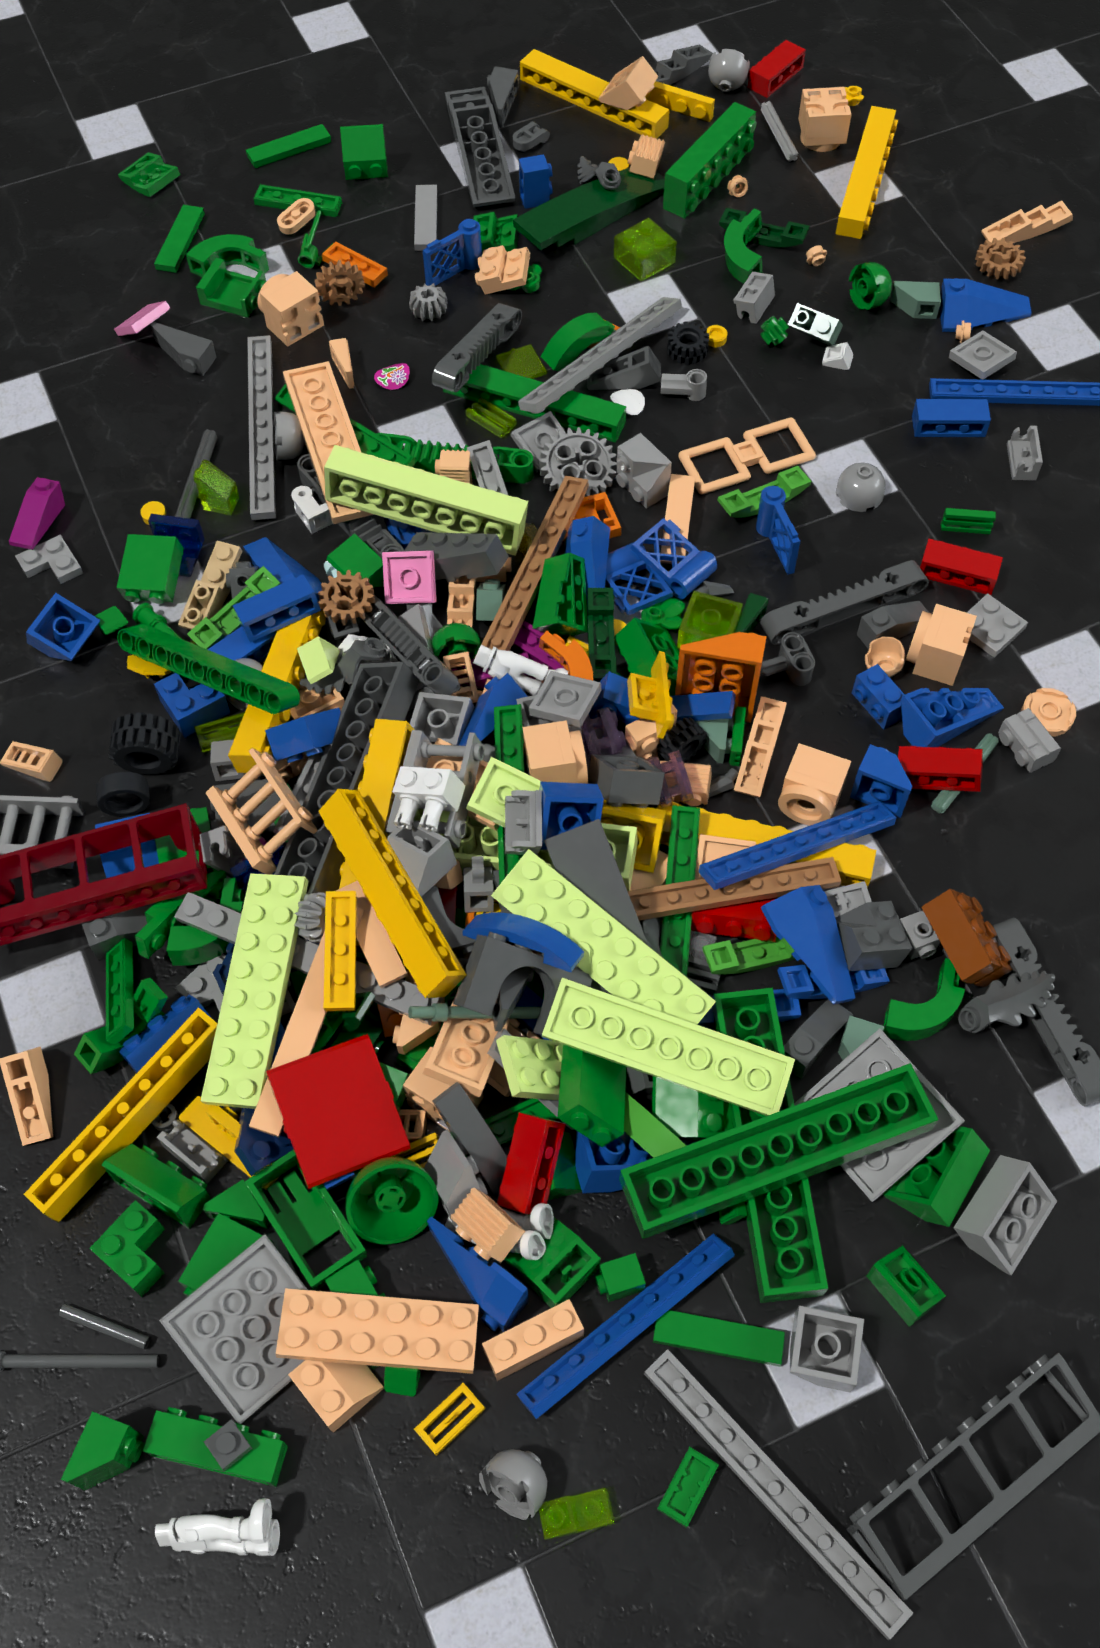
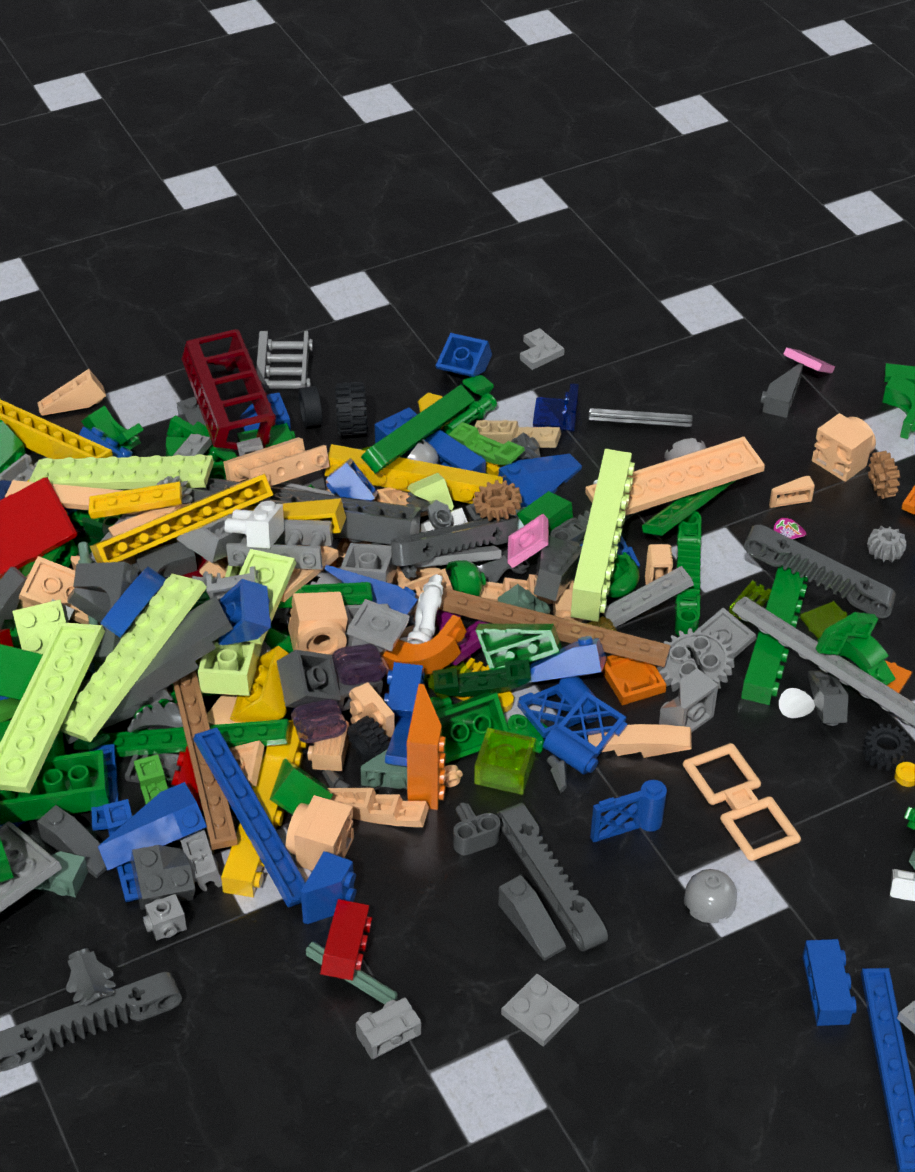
camera: 85 degrees right, 15 degrees down
(38, 511) = (581, 330): magenta slope -> none
(46, 767) = (346, 365): light nougat slope -> none
(119, 991) = (130, 422): green tile -> none
(150, 568) = (529, 397): green brick -> none
(152, 508) = (597, 398): yellow tile -> none
(215, 489) = (619, 422): clear neon green slope -> none
(229, 290) = (872, 407): green panel -> none
(261, 428) = (761, 443): light grey plate -> none
(277, 608) = (482, 460): blue brick -> none
(583, 334) = (854, 625): none -> green tile
(650, 696) = (391, 691): yellow bracket -> none
(691, 385) = (823, 743): light grey piece -> none
(737, 736) = (385, 785): green tile -> none
(747, 504) = (683, 812): bright green slope -> none
(750, 805) = (296, 787): none -> green slope
(752, 613) = (516, 792): dark green slope -> none
(879, 696) = (433, 899): blue brick -> none
(887, 653) = (481, 905): light nougat hair -> none
(918, 1021) = (82, 909): green arch -> none
(940, 643) = (495, 945): light nougat piece -> none
(941, 715) = (413, 950): blue wedge -> none
(960, 566) = (611, 979): red brick -> none
(967, 938) = (153, 944): dark orange piece -> none
(968, 520) = (676, 990): green tile -> none
(1024, 454) = (787, 1057): light grey hinge -> none
(1052, 710) = (431, 1056): light nougat tile -> none

